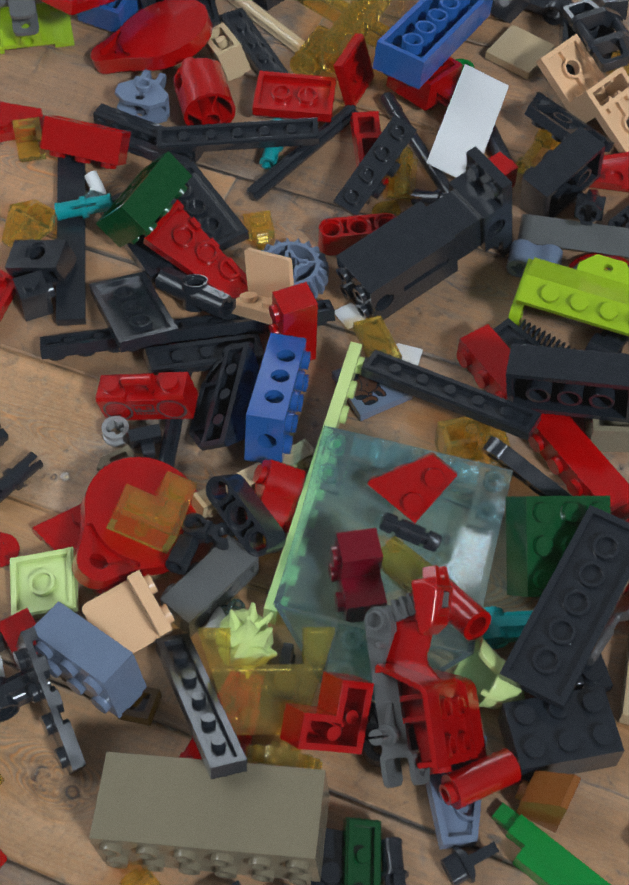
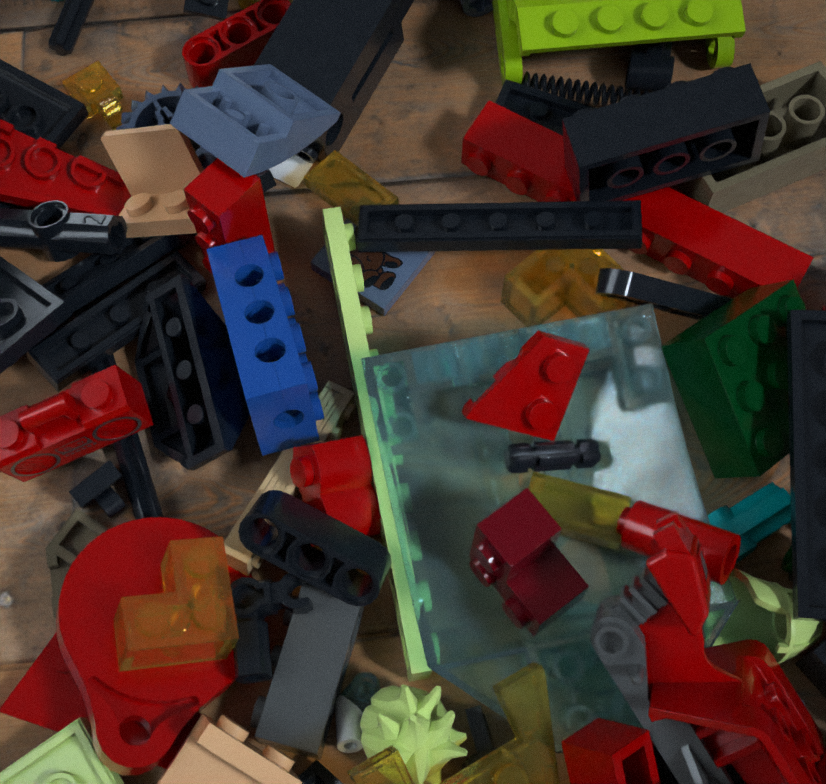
camera: 25 degrees left, 10 degrees up
(111, 438) = (45, 509): light grey bush -> none
(334, 271) = (253, 117): none -> sand blue slope
(410, 353) = (402, 186): white sticker -> none

